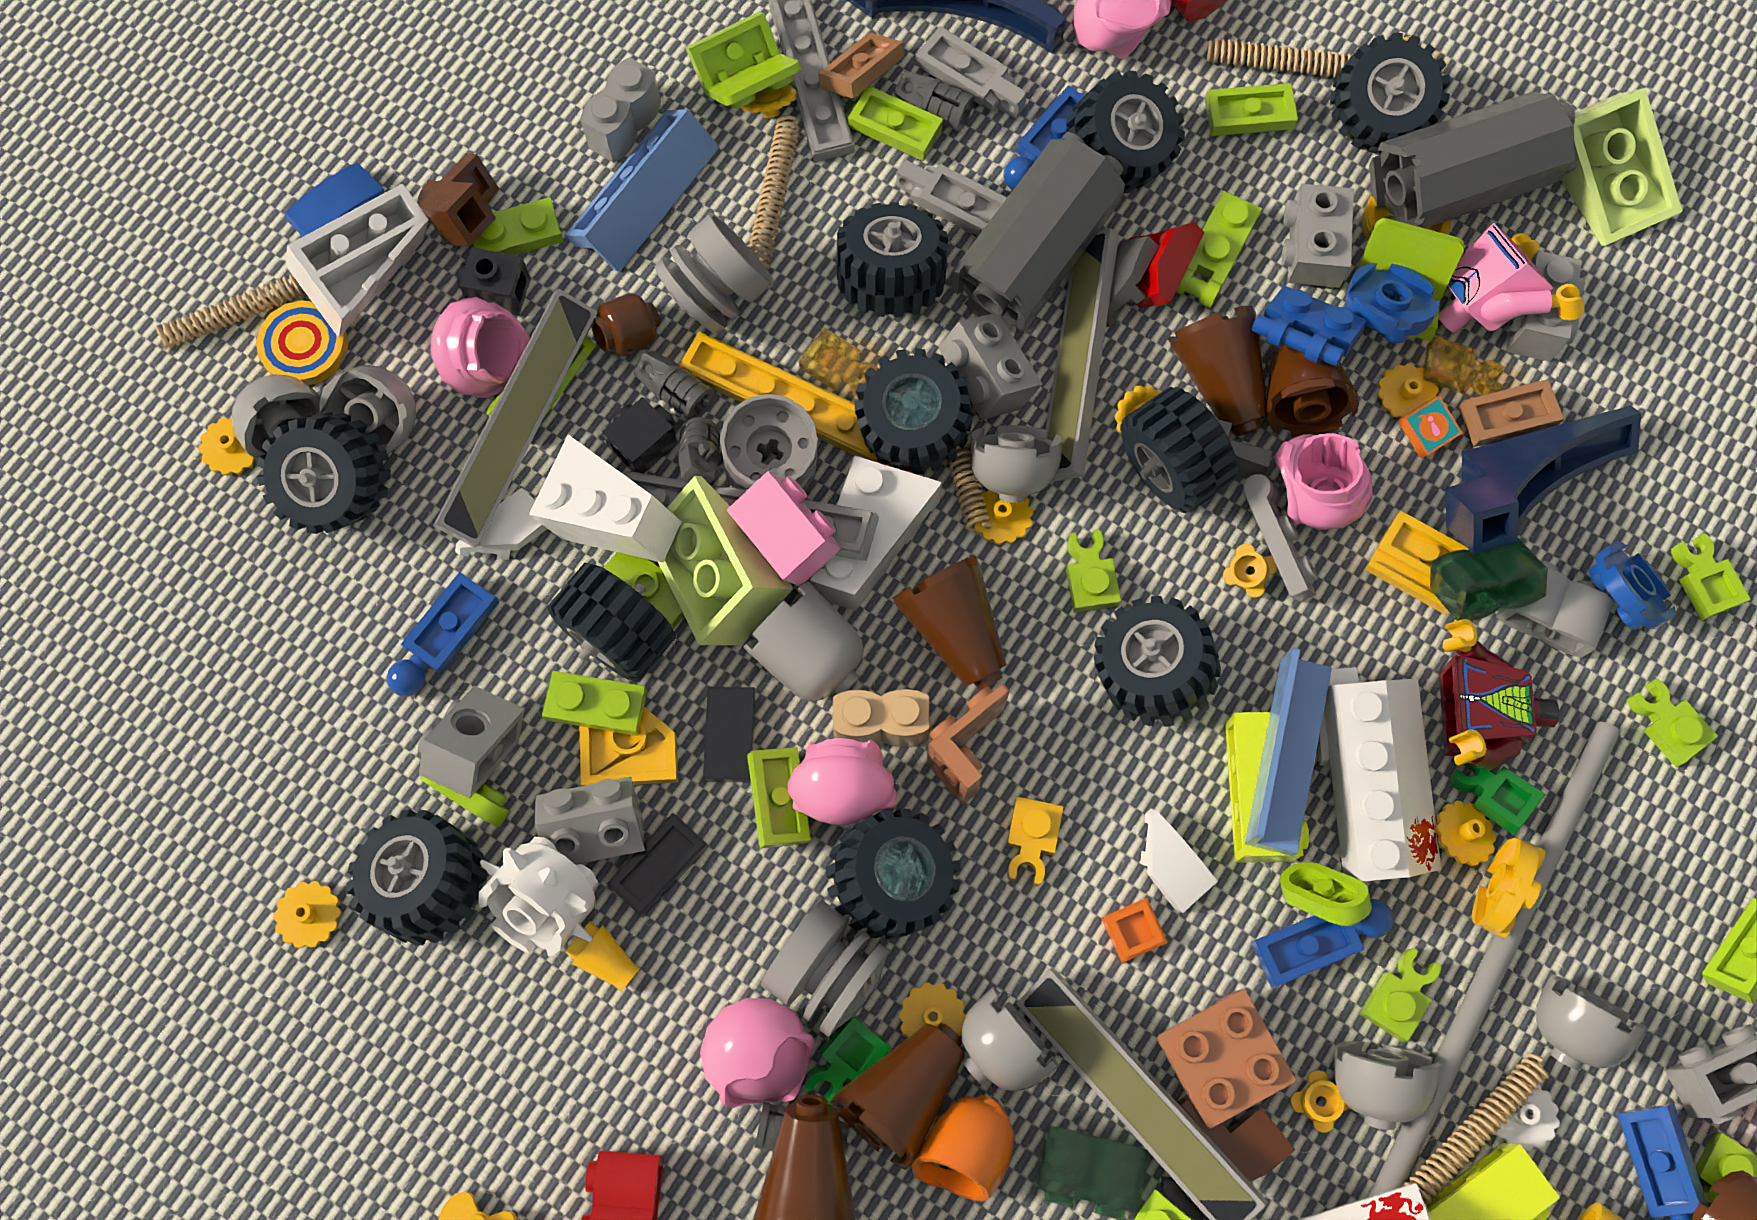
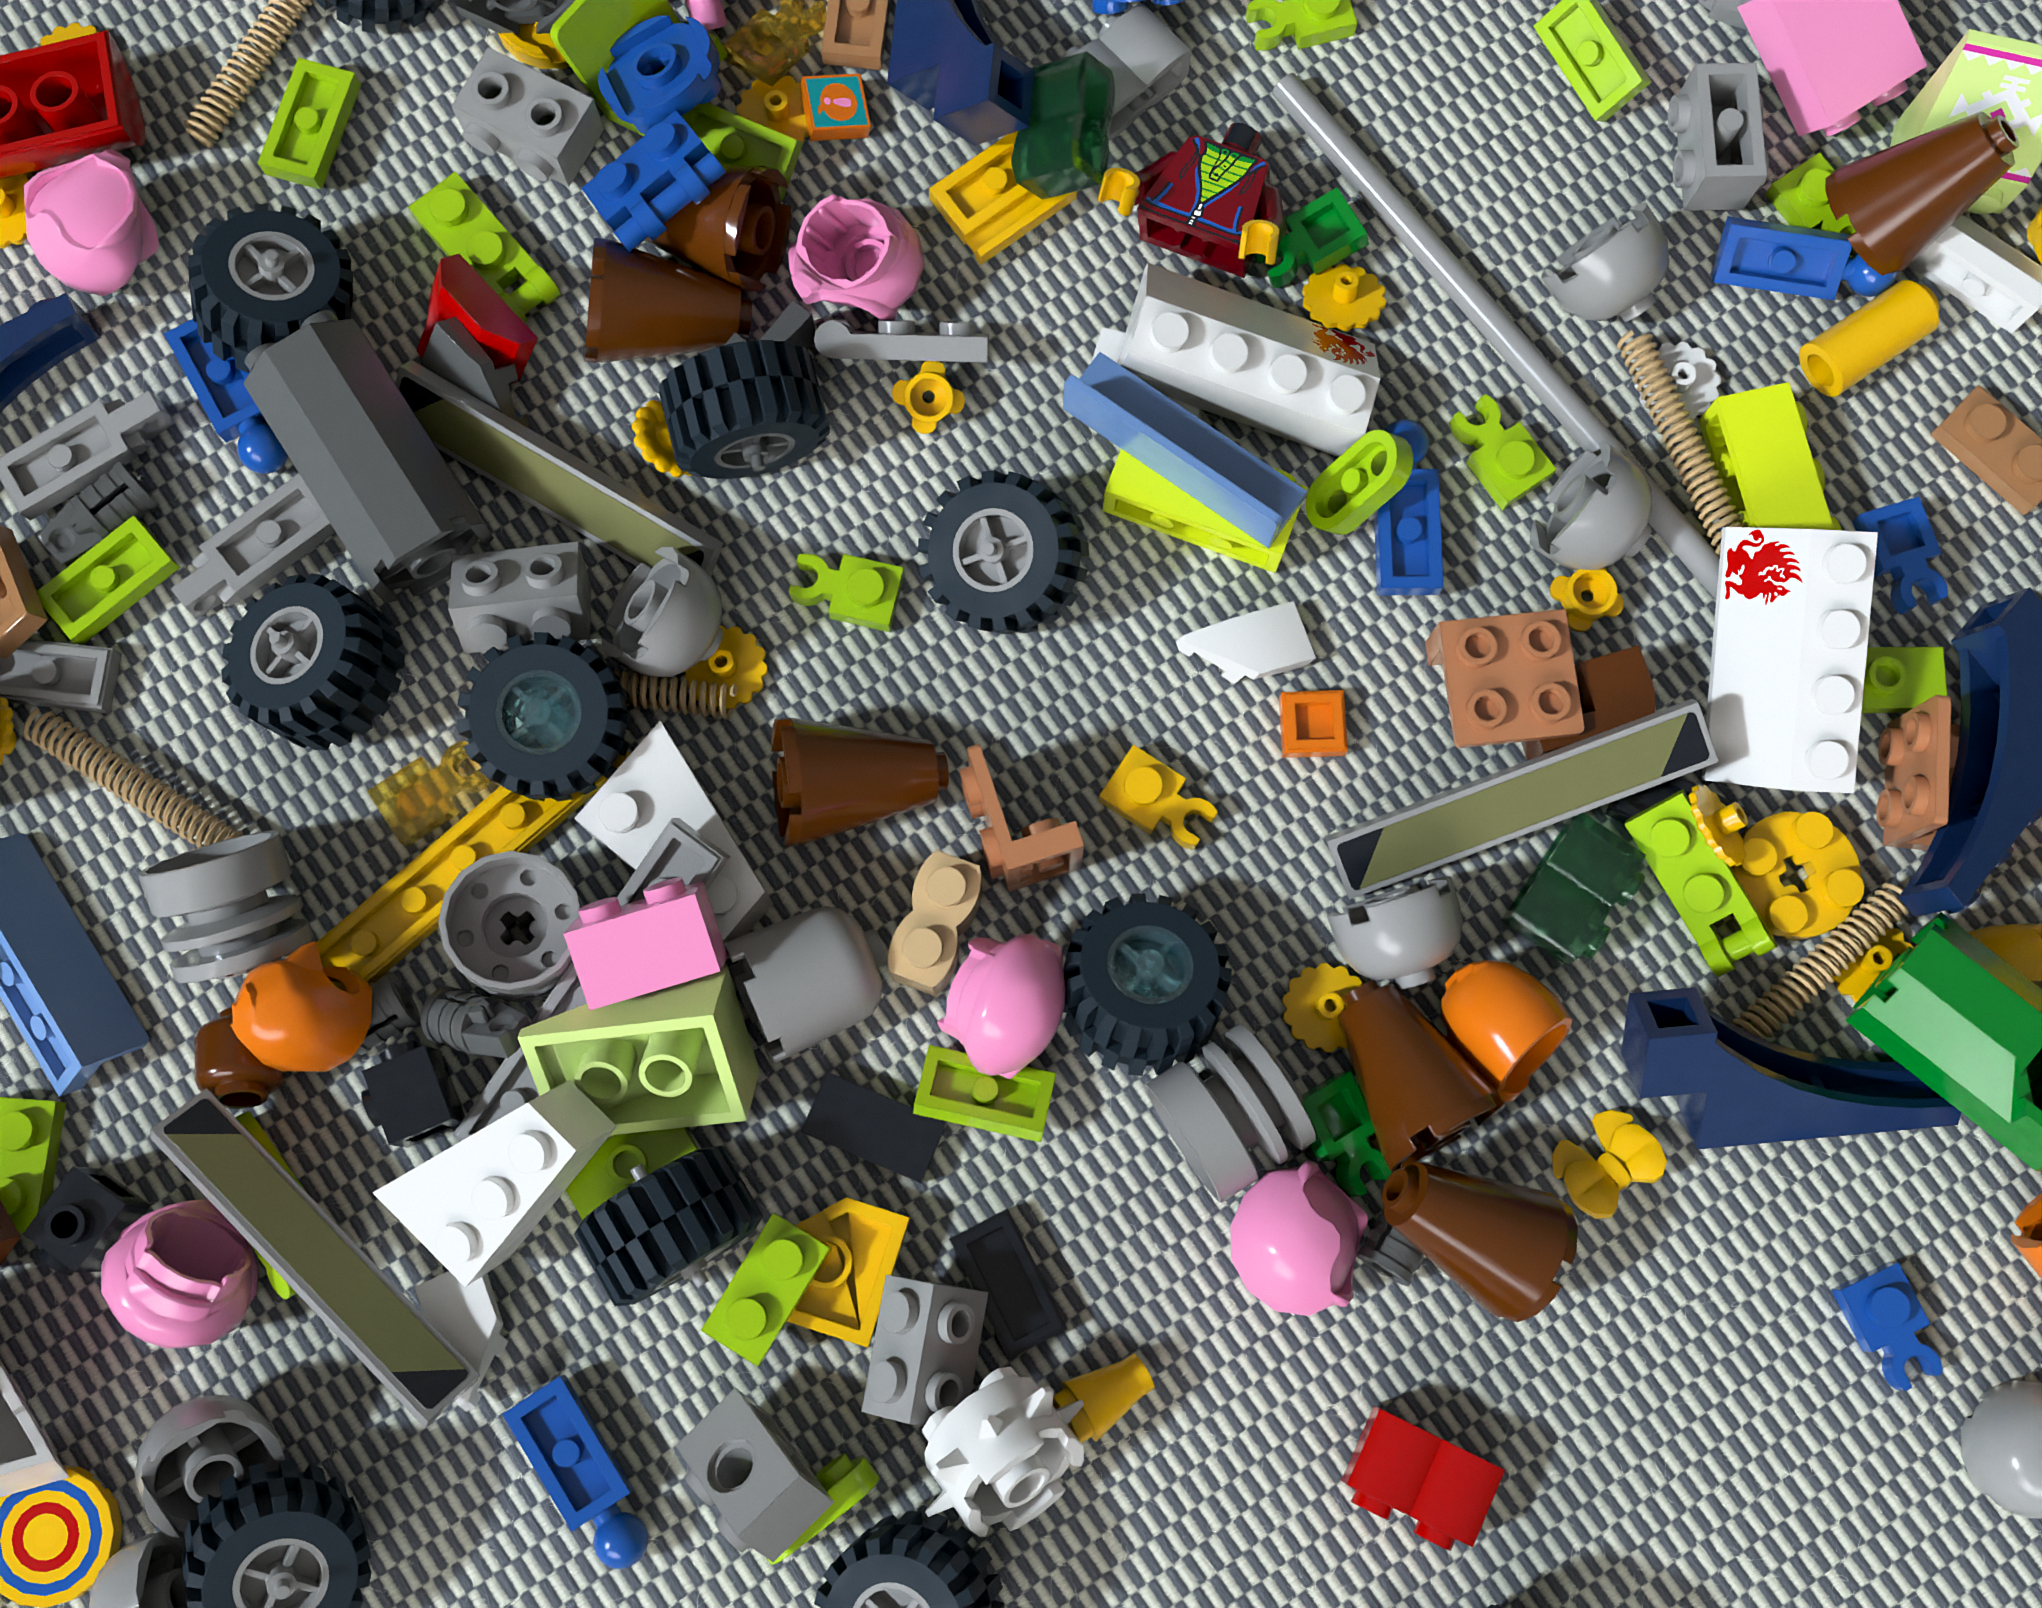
camera: 70 degrees left, 5 degrees up
(657, 344) = (297, 1016): none -> orange piece
(1370, 374) = (743, 142): none -> lime plate
(1509, 887) = (1431, 275): yellow plate -> none

